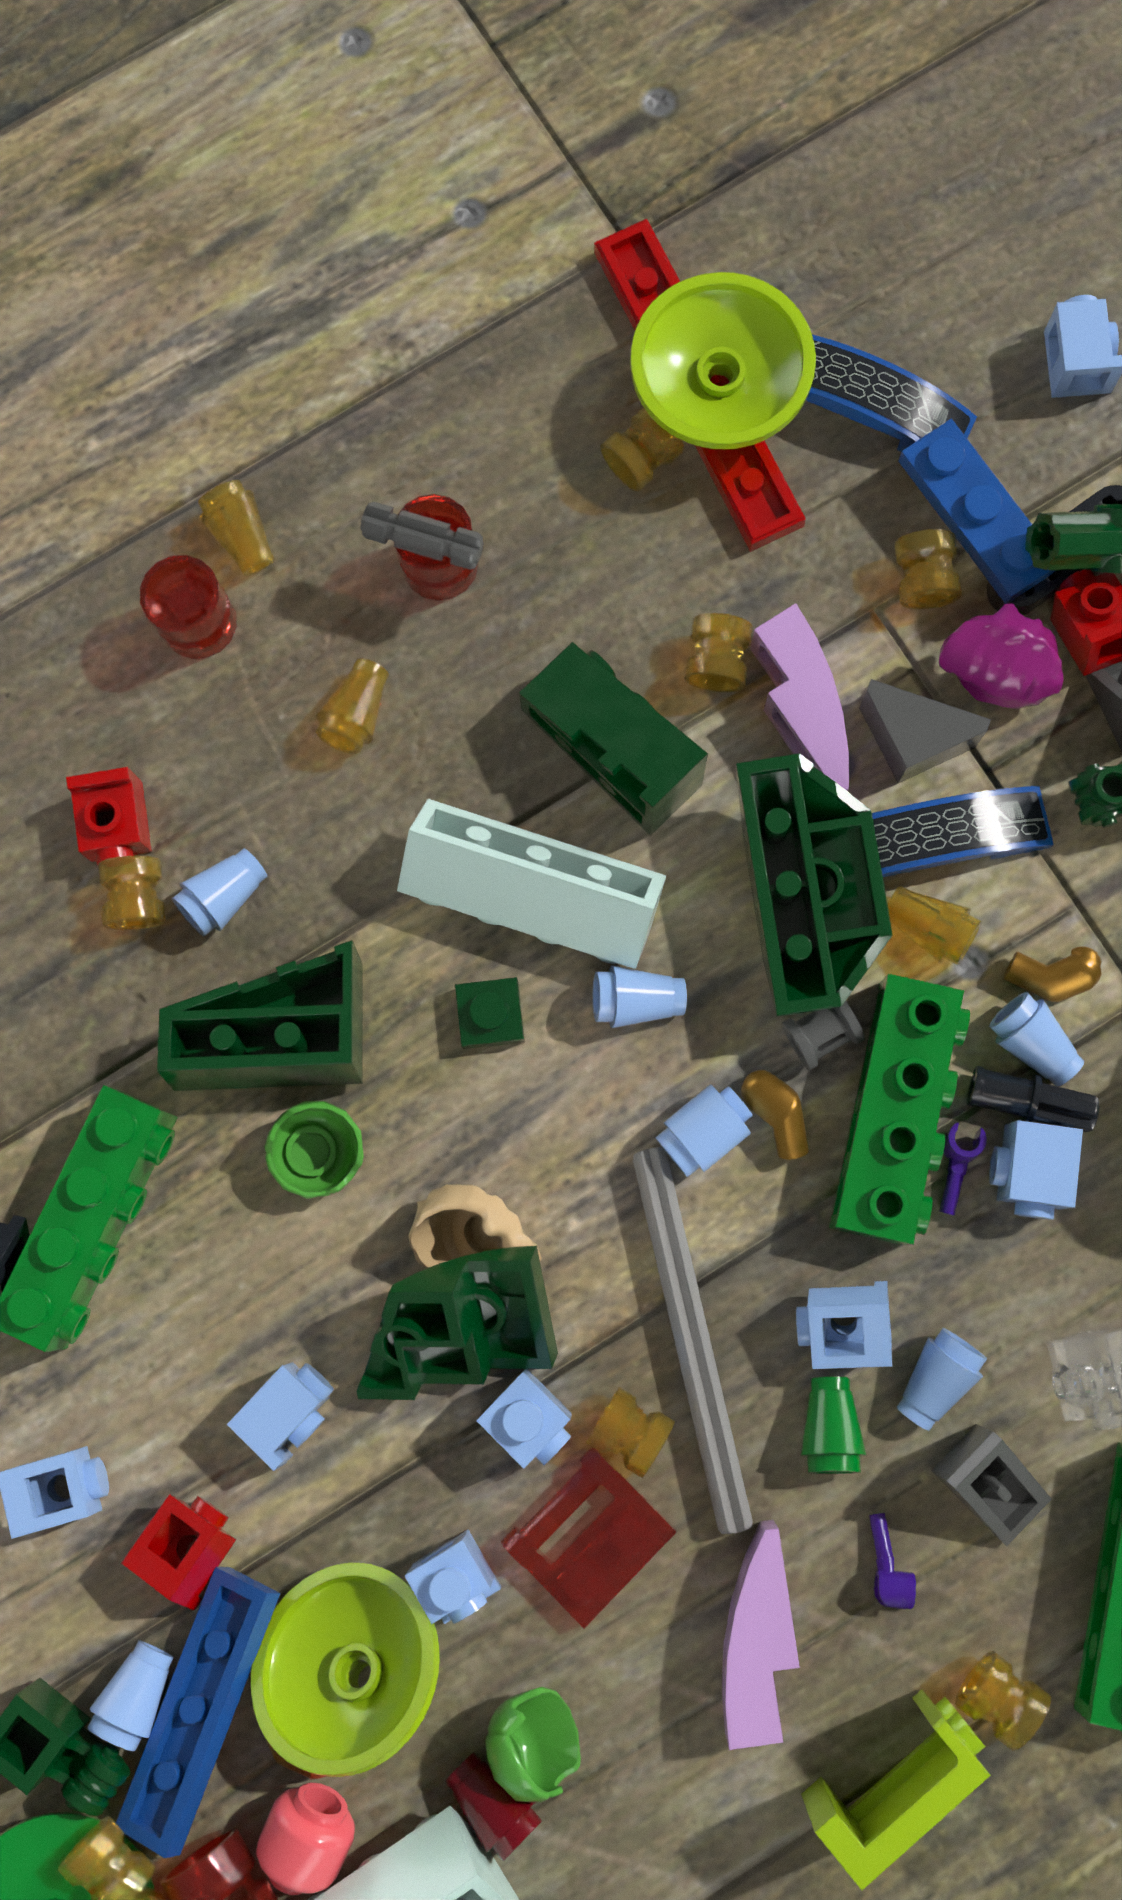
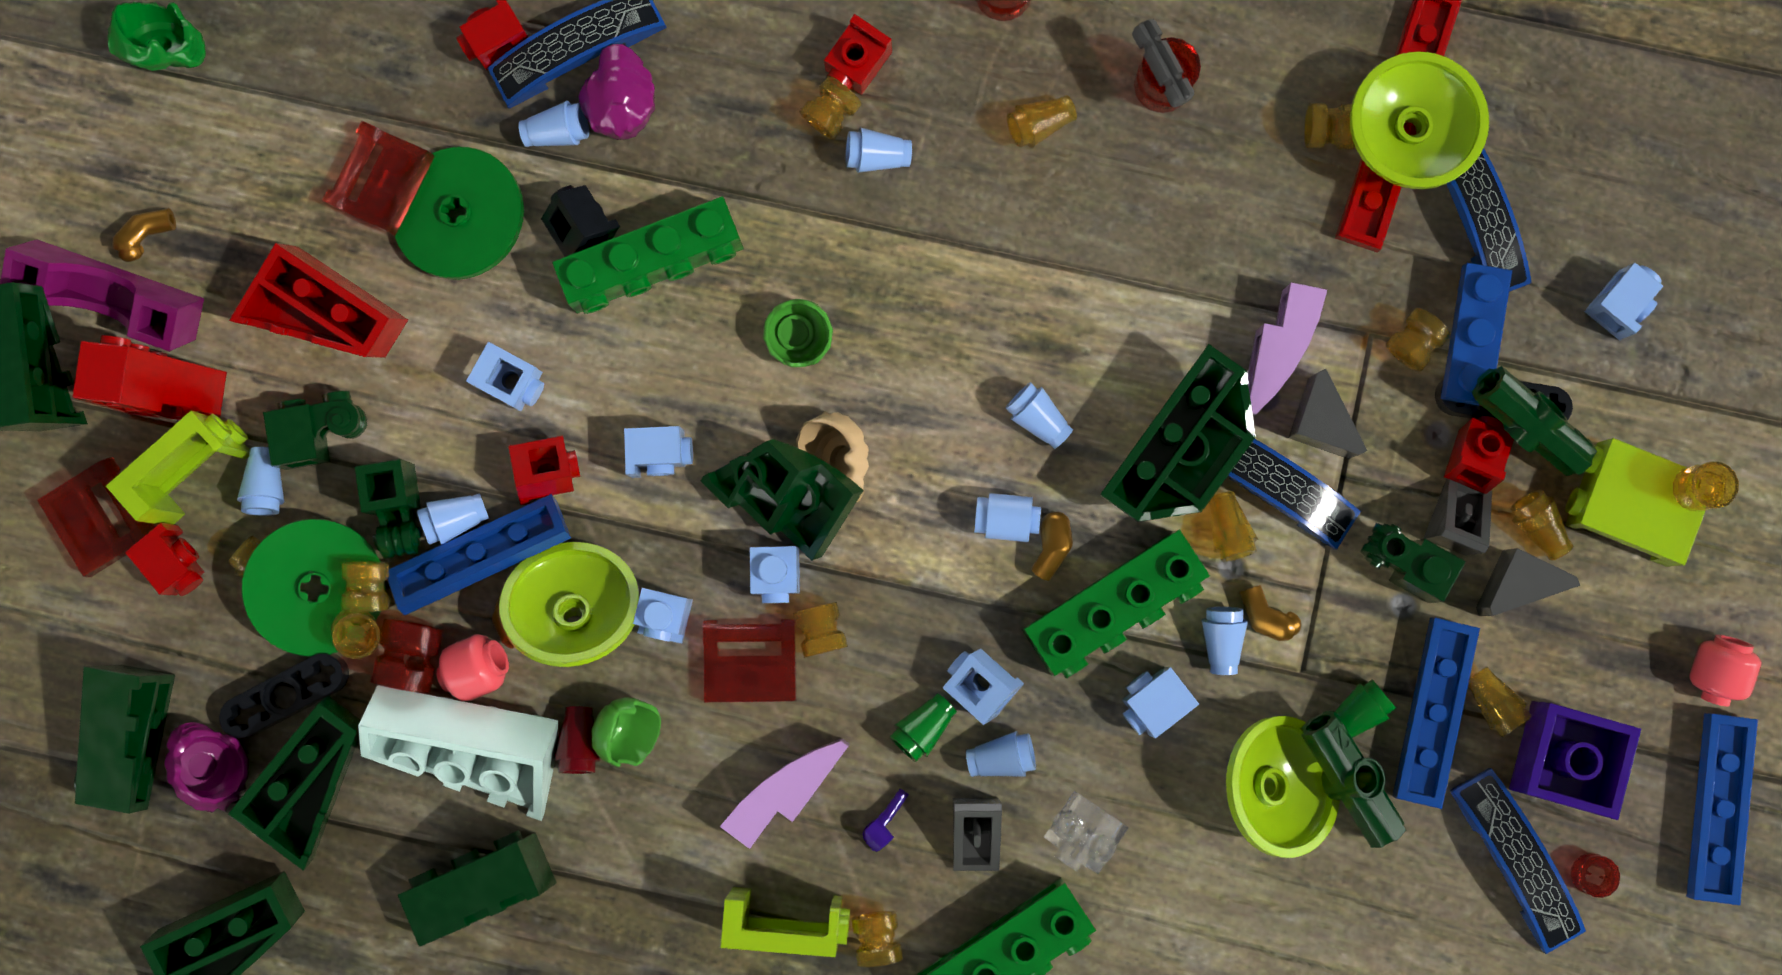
camera: 40 degrees right, 5 degrees up
(271, 1031) = (834, 251): dark green wedge -> none
(489, 1013) = (955, 350): dark green plate -> none
(530, 883) = (1041, 303): light aqua brick -> none
(615, 736) = (1162, 267): dark green wedge -> none
(692, 1341) = (896, 615): light grey axle -> none
(719, 649) = (1263, 275): clear yellow wheel -> none
(822, 1033) = (1116, 527): dark grey bush -> none
(958, 1166) = (1117, 663): dark purple hand -> none
(1004, 659) = (1408, 426): magenta hair -> none
(1032, 1099) = (1191, 667): black axle -> none

